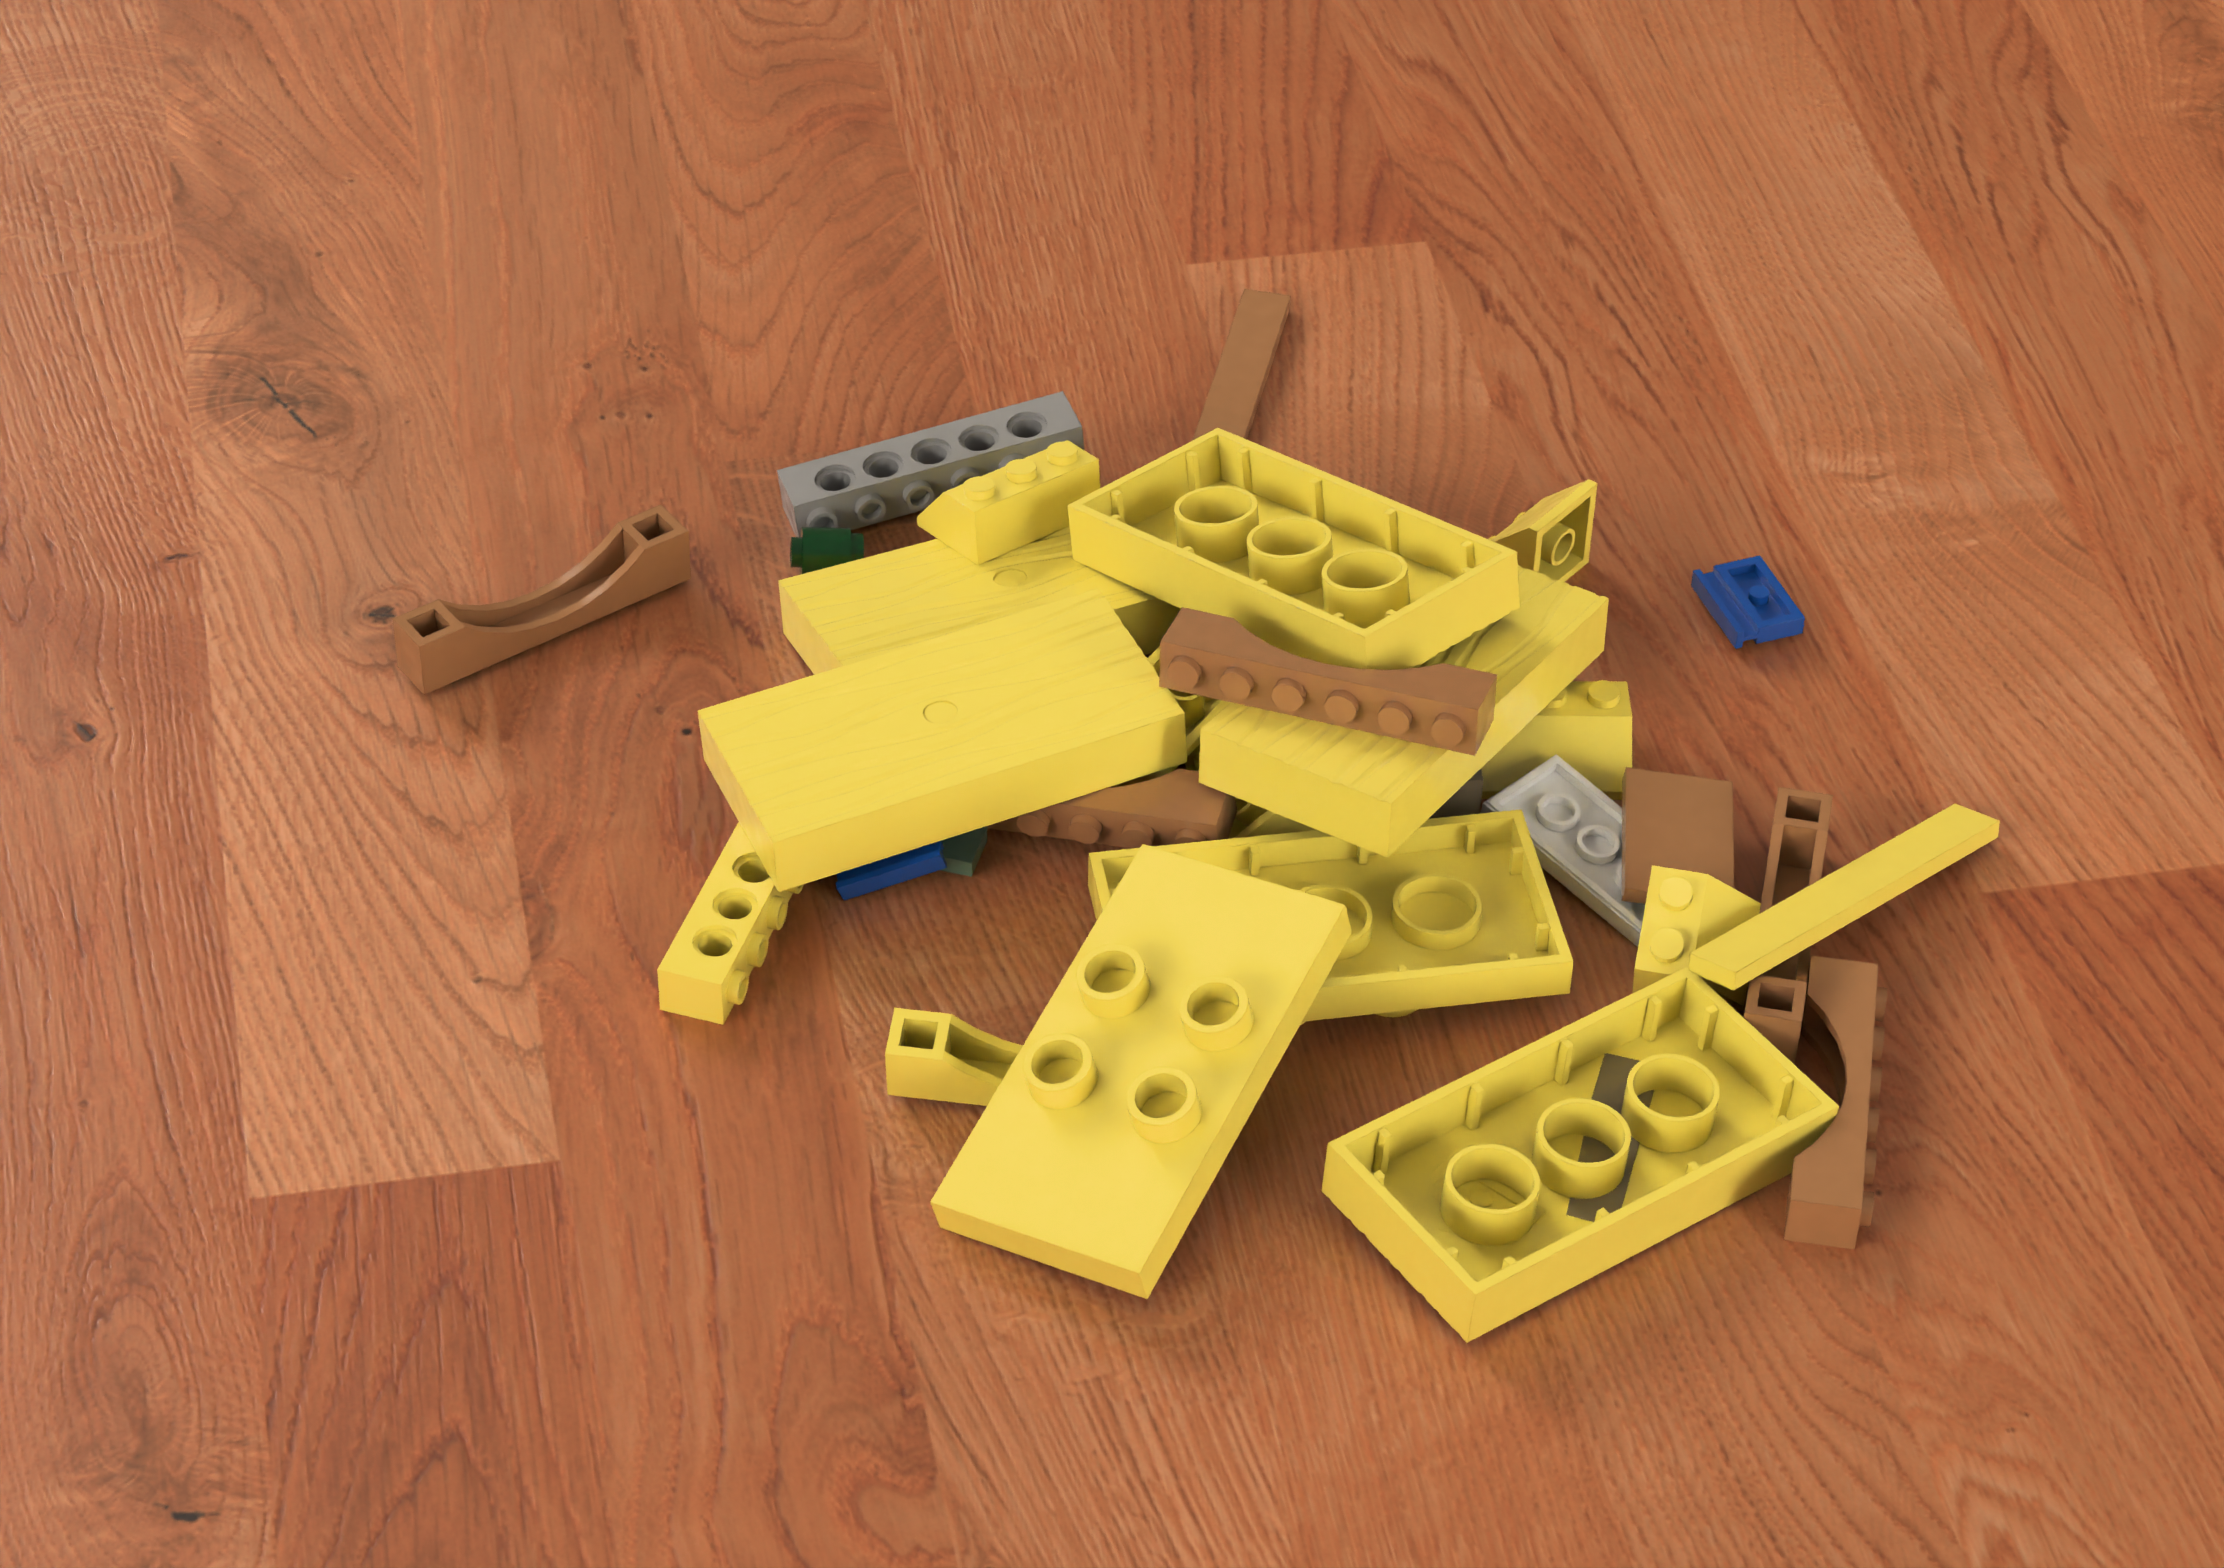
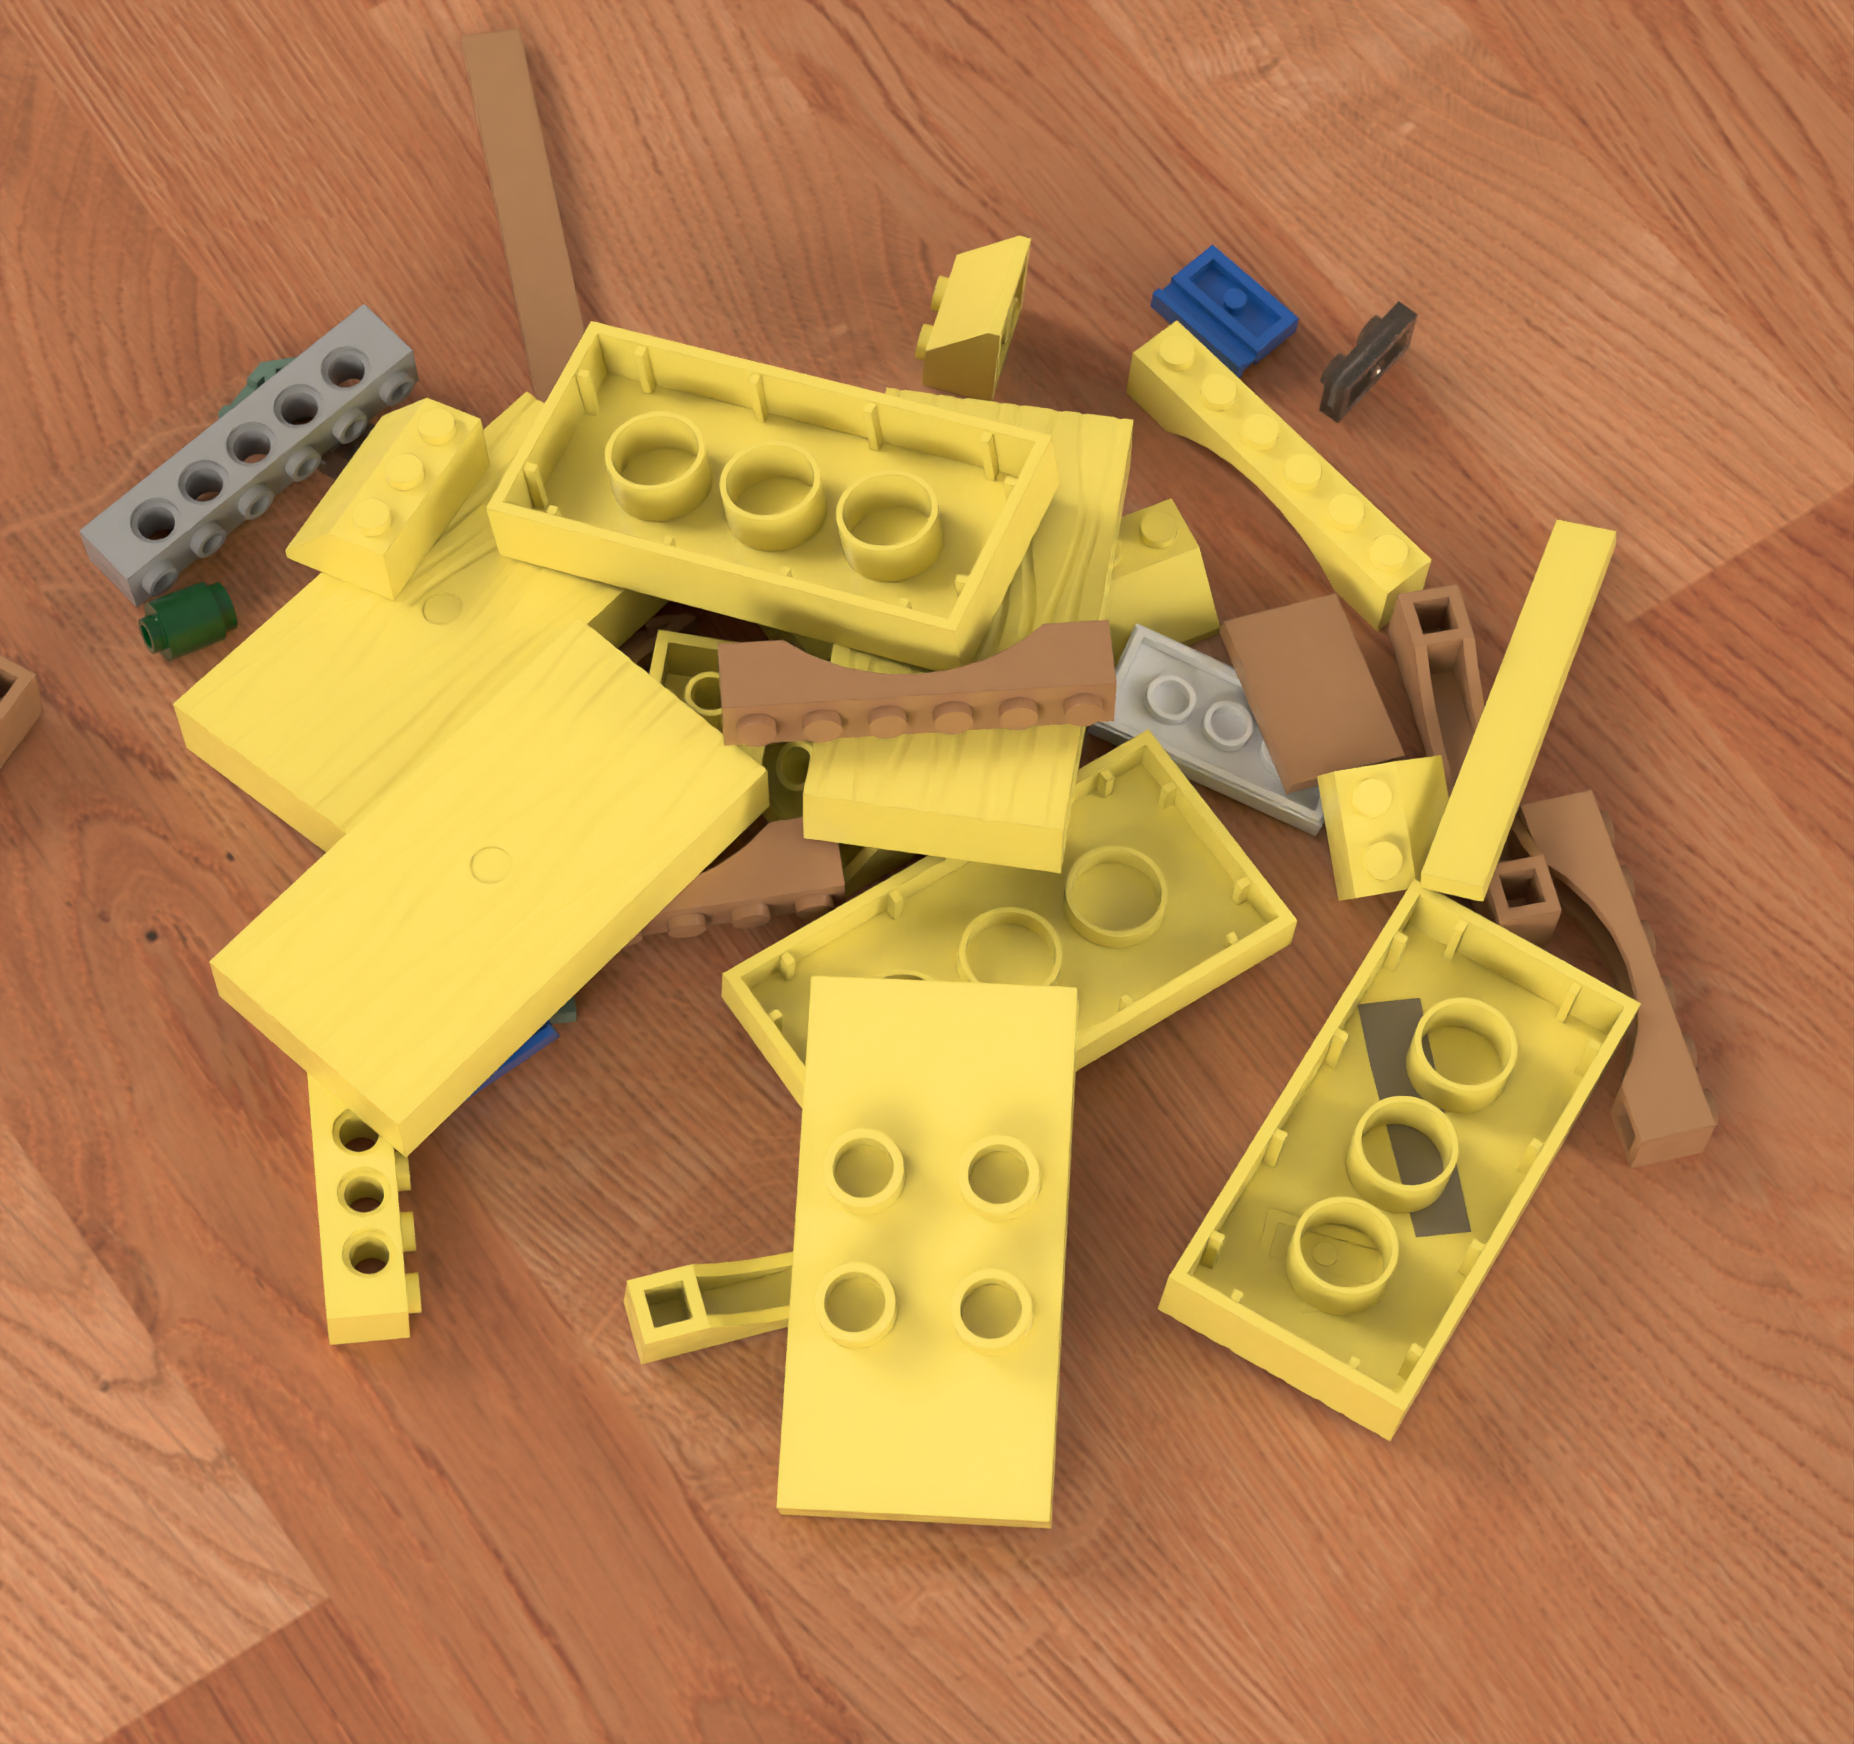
camera: 30 degrees left, 20 degrees up
(1694, 640) = (1351, 539): none -> light yellow arch
(1848, 661) = (1376, 351): none -> clear smoke plate

